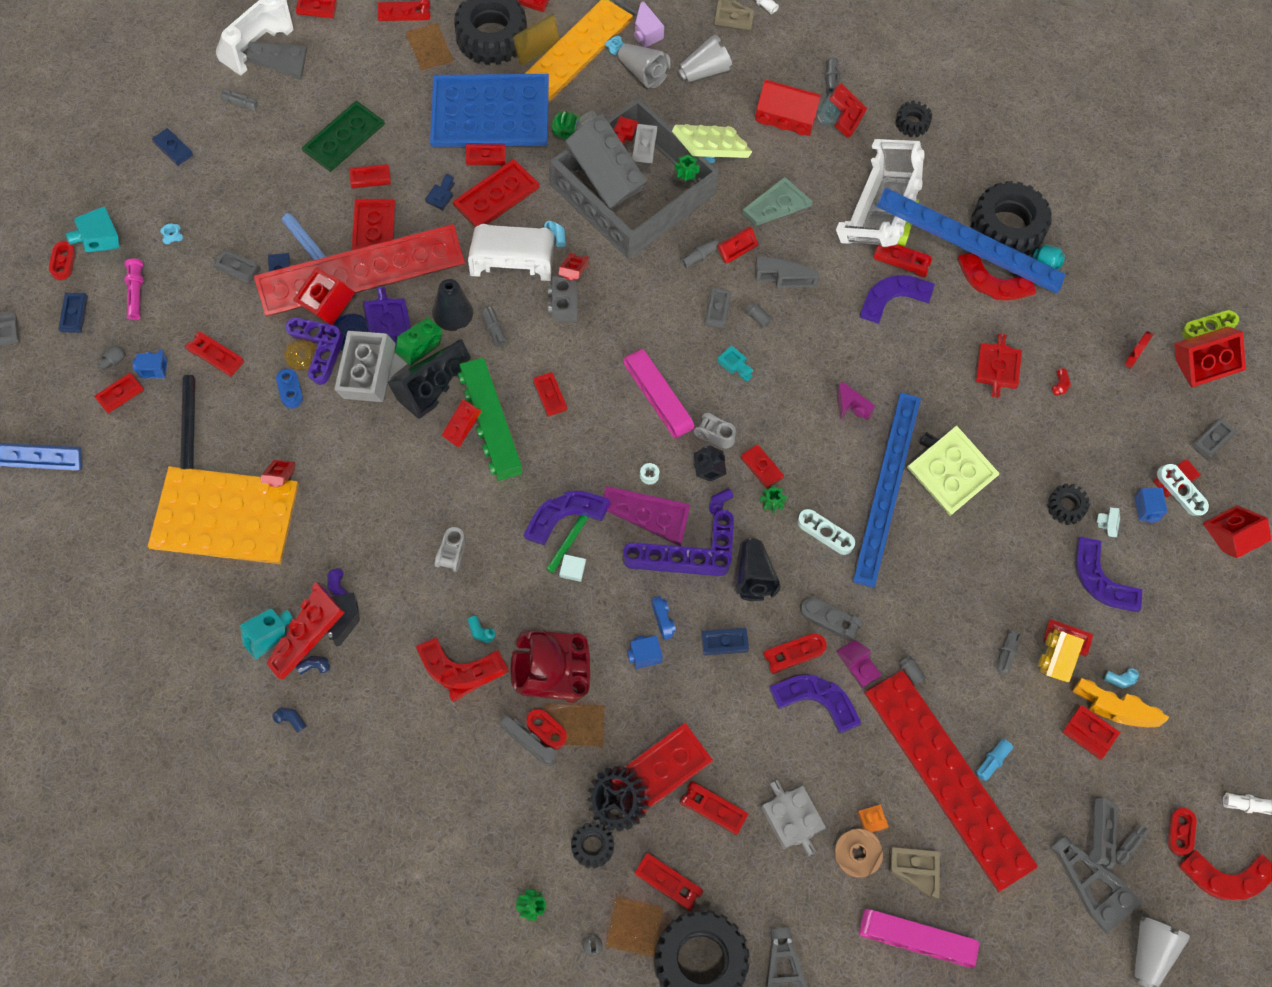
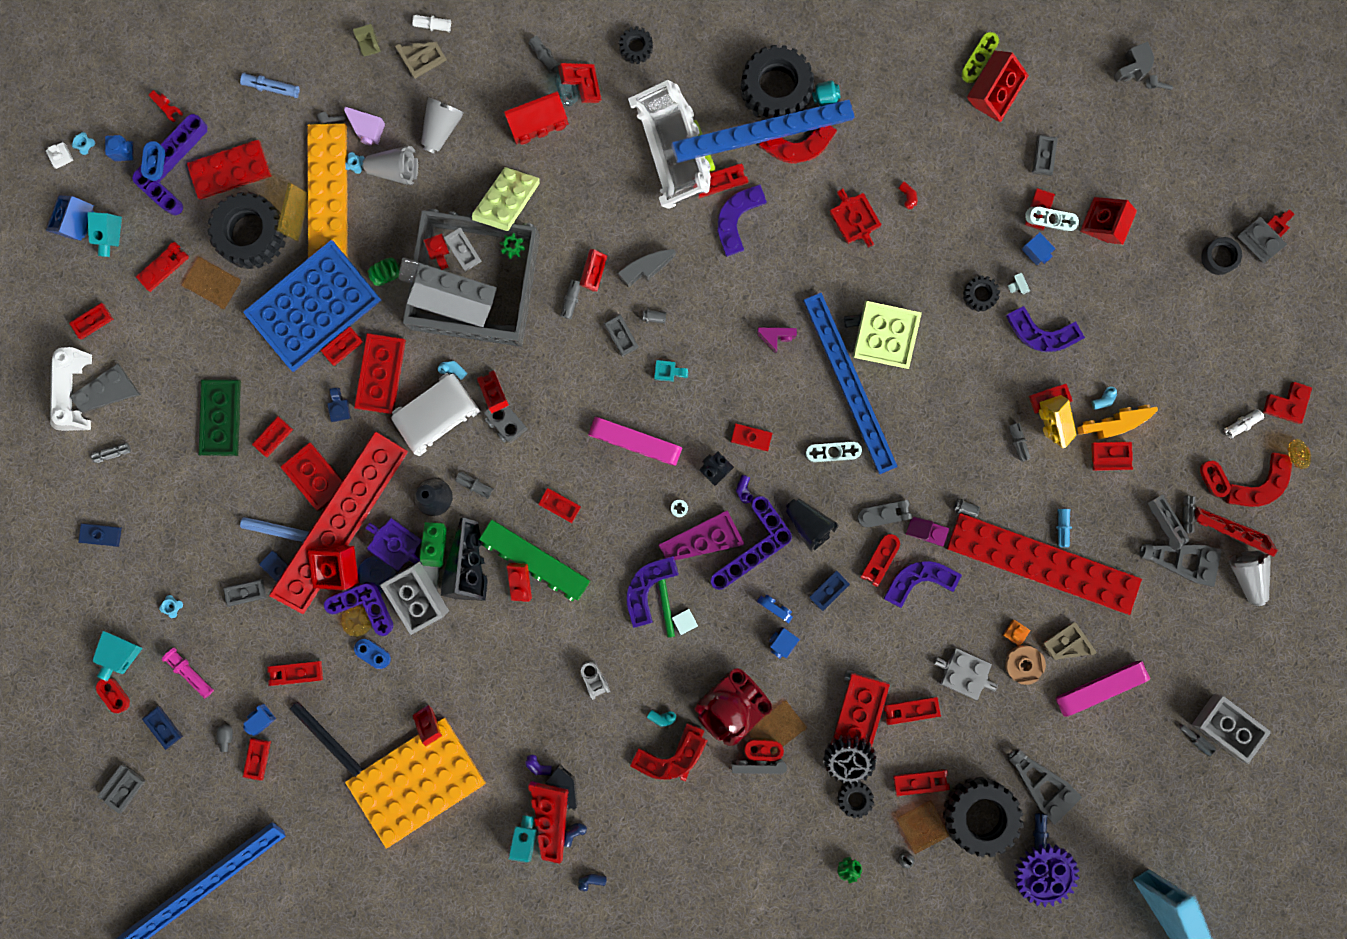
camera: 35 degrees left, 20 degrees up
(714, 429) = (697, 438): light grey piece -> none
(771, 494) = (775, 461): green gear -> none
(777, 202) = (592, 208): sand green wing -> none
(1138, 349) = (947, 125): red tile -> none
(1171, 898) = (1240, 532): none -> red wing

